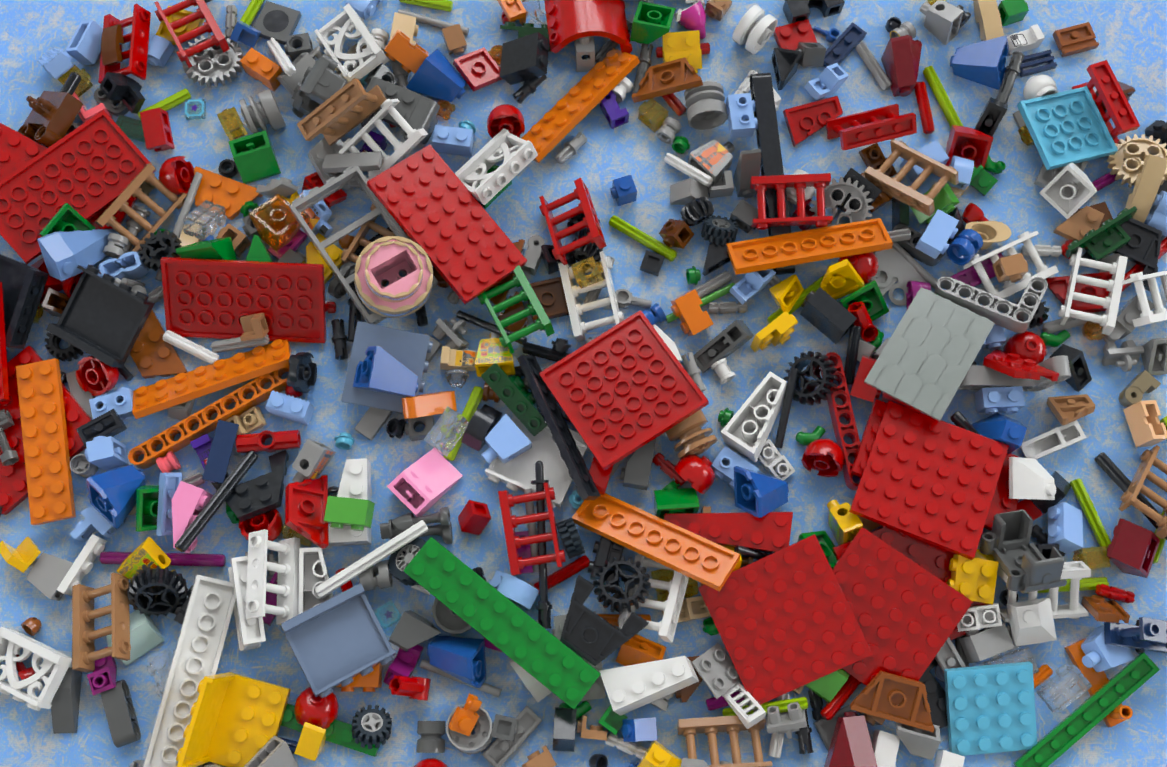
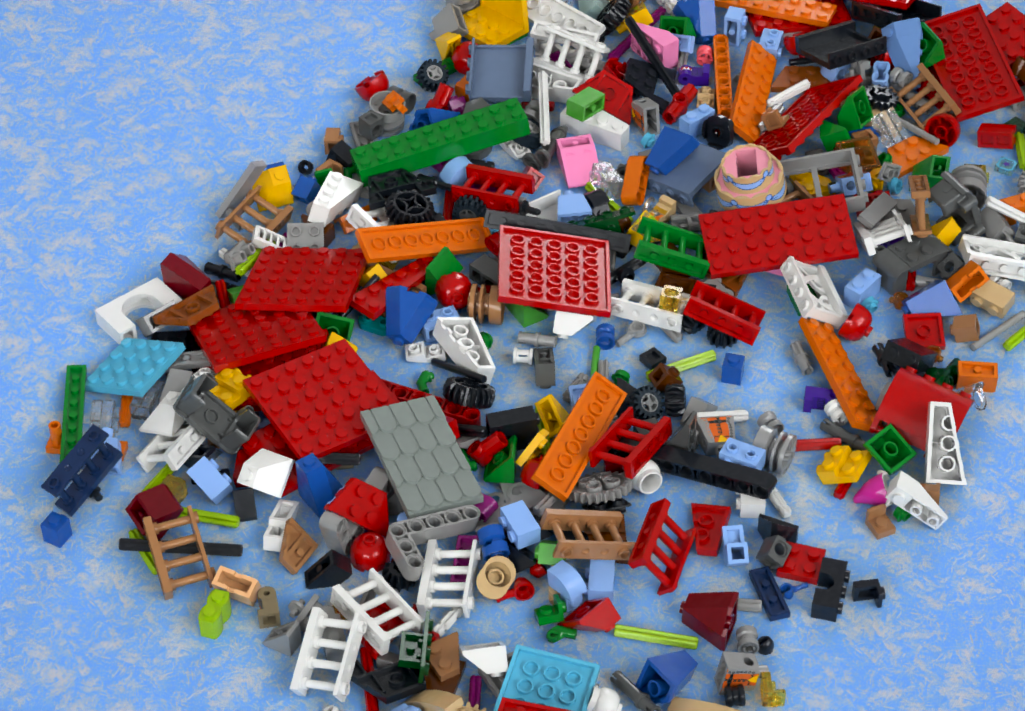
camera: 125 degrees right, 30 degrees down
(105, 425) = (755, 28): black slope -> none
(220, 452) = (689, 73): dark blue tile -> none
(652, 114) = (795, 420): clear yellow brick -> none
(667, 79) = (816, 431): dark orange wing -> none
(680, 144) = (750, 427): green plate -> none
(690, 313) = (587, 354): orange brick -> none
(754, 29) = (828, 520): white wheel -> none
(775, 332) = (525, 388): yellow plate -> none
(824, 457) = (402, 371): red cylinder -> none
(924, 108) = (657, 617): red axle -> none
(991, 116) = (607, 654): black slope -> none
(1010, 268) = (447, 561): medium nougat brick -> none
(1055, 340) = (361, 577): green arm -> none
(1105, 610) = (130, 467): dark orange plate -> none
(1115, 593) = (135, 488): red axle -> none

